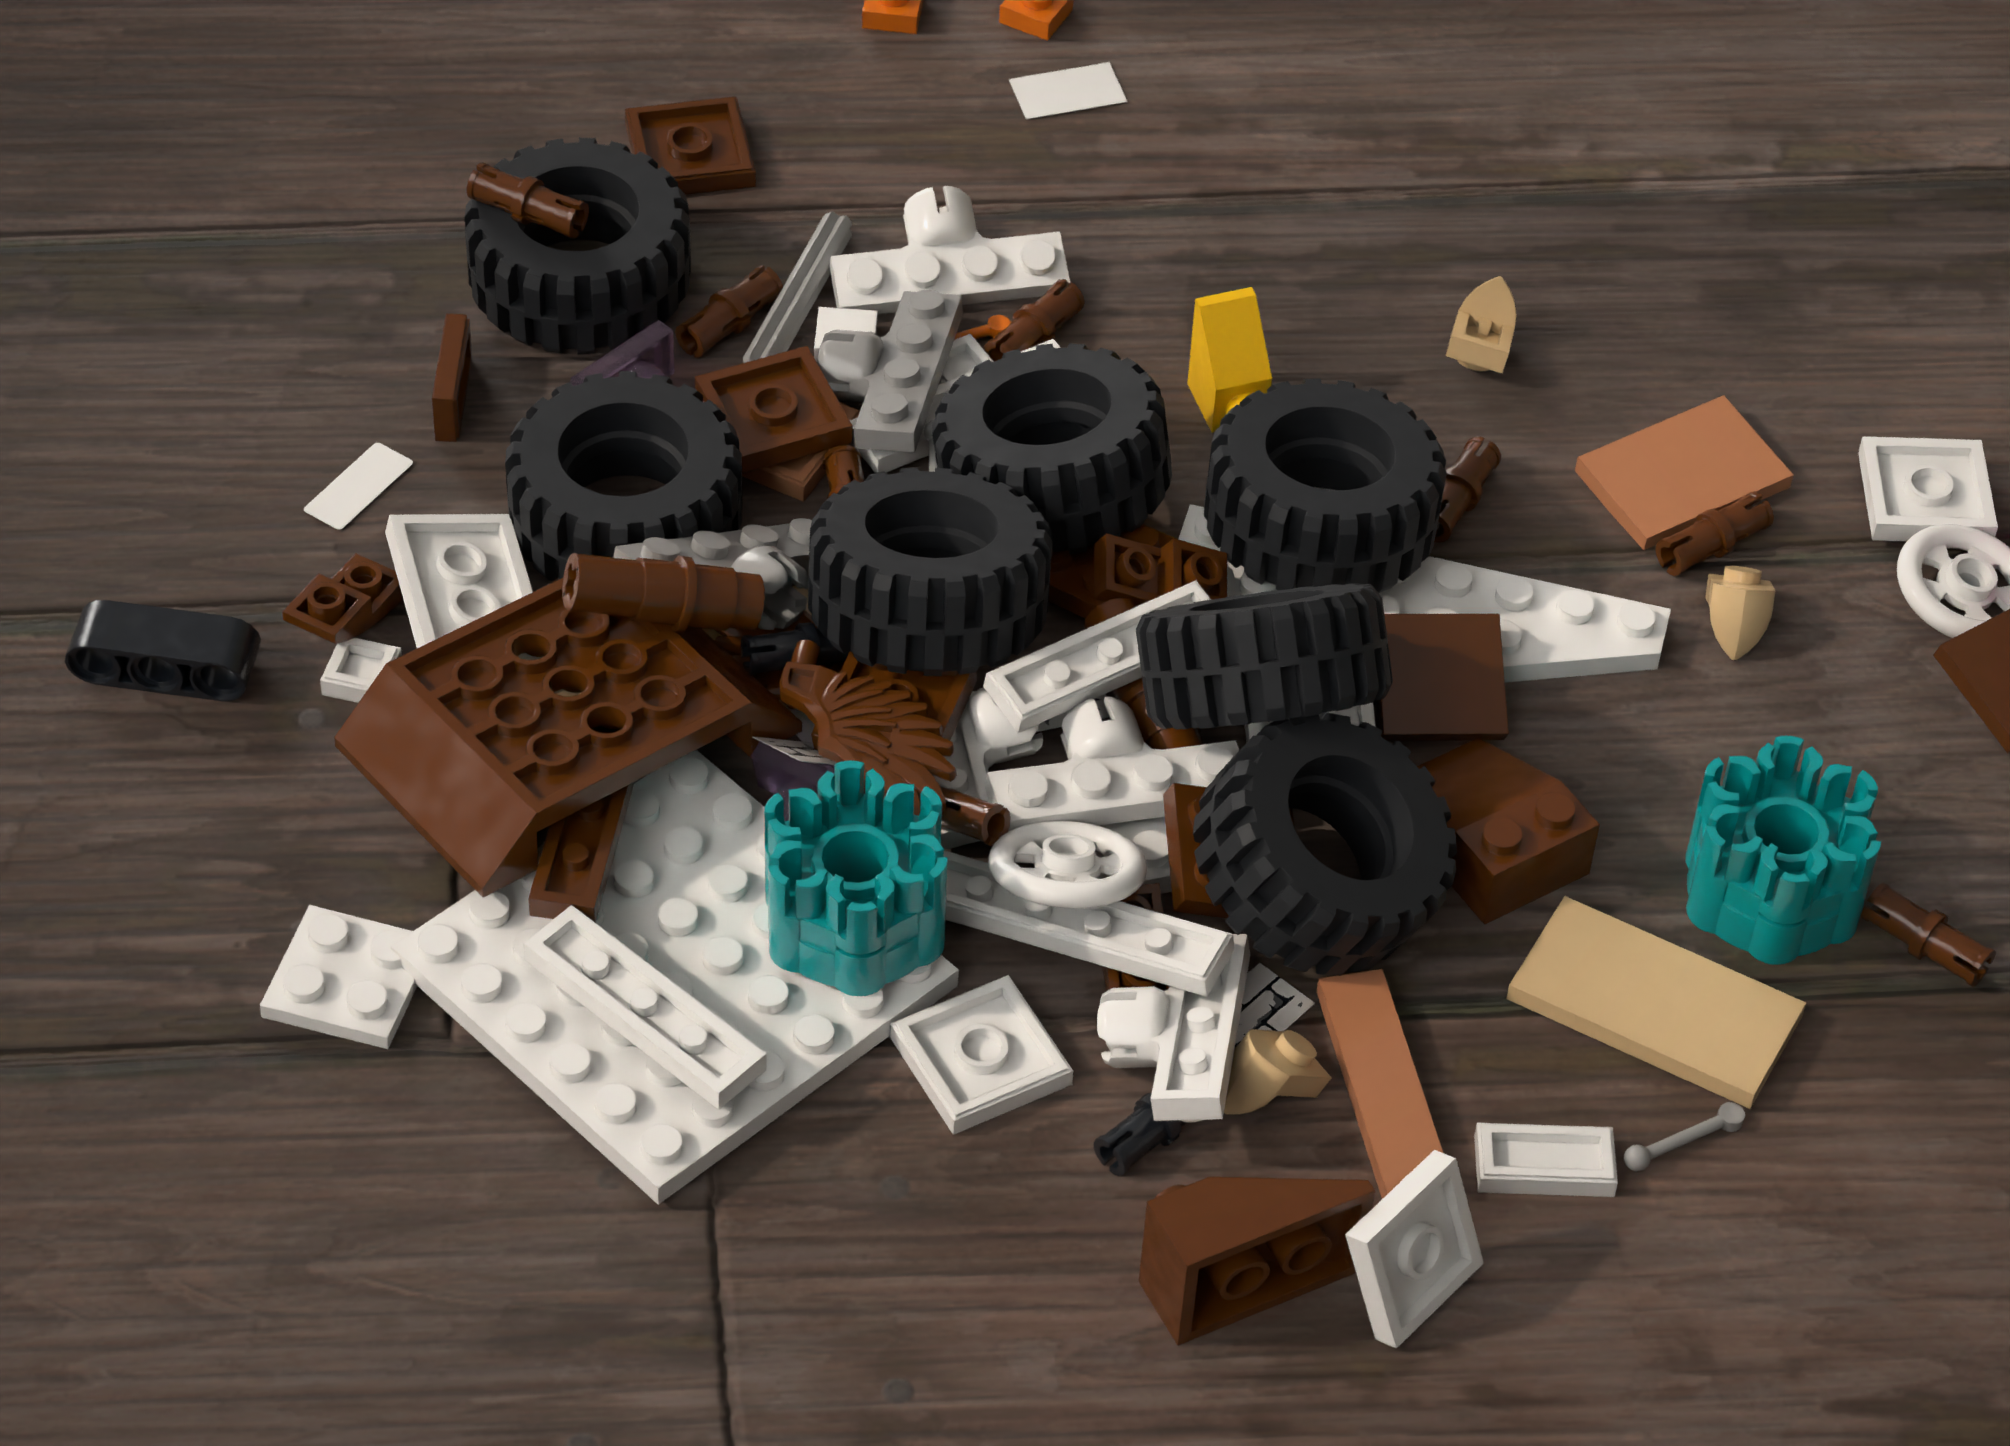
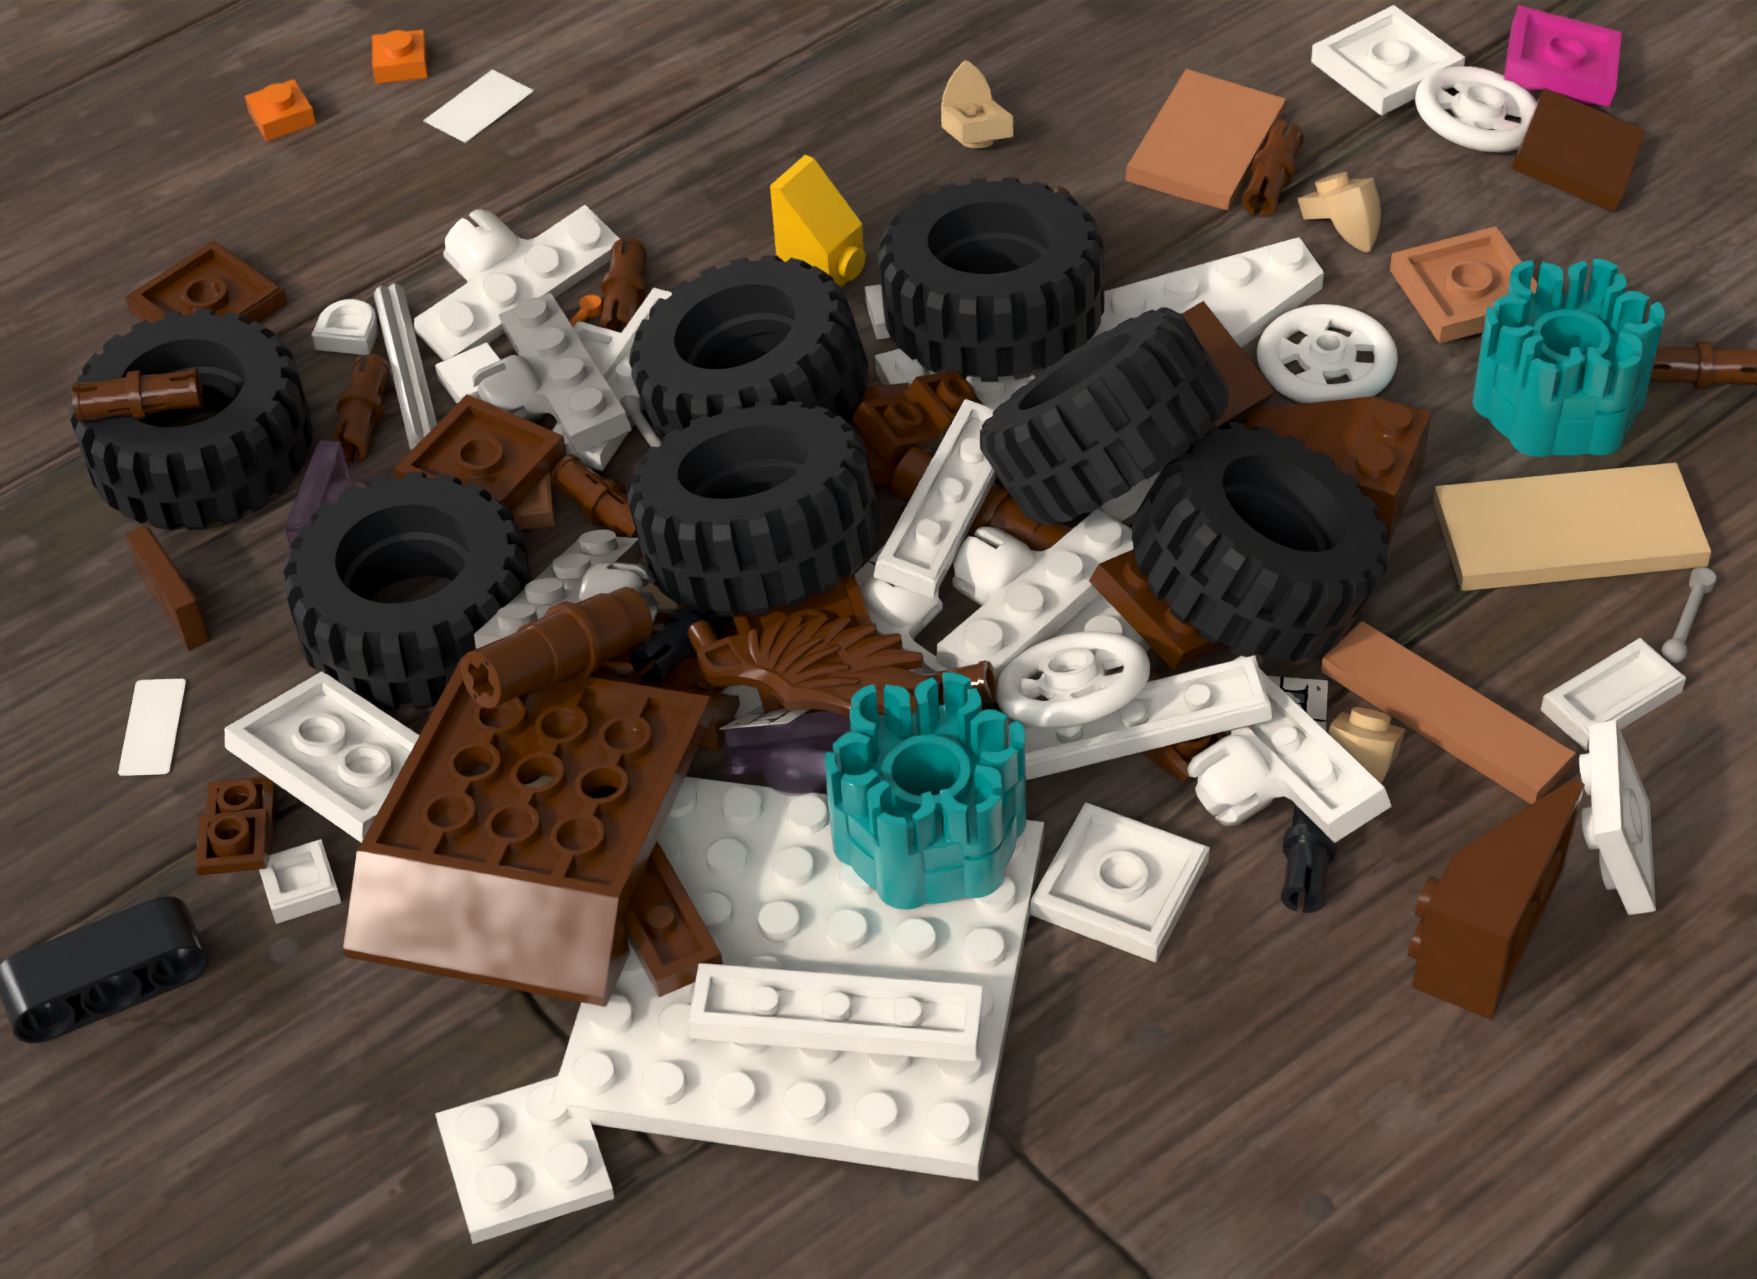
camera: 30 degrees left, 0 degrees up
(779, 234) = (346, 328): none -> white tile
(1607, 768) = (1326, 354): none -> white plate
(1768, 708) = (1456, 280): none -> nougat plate

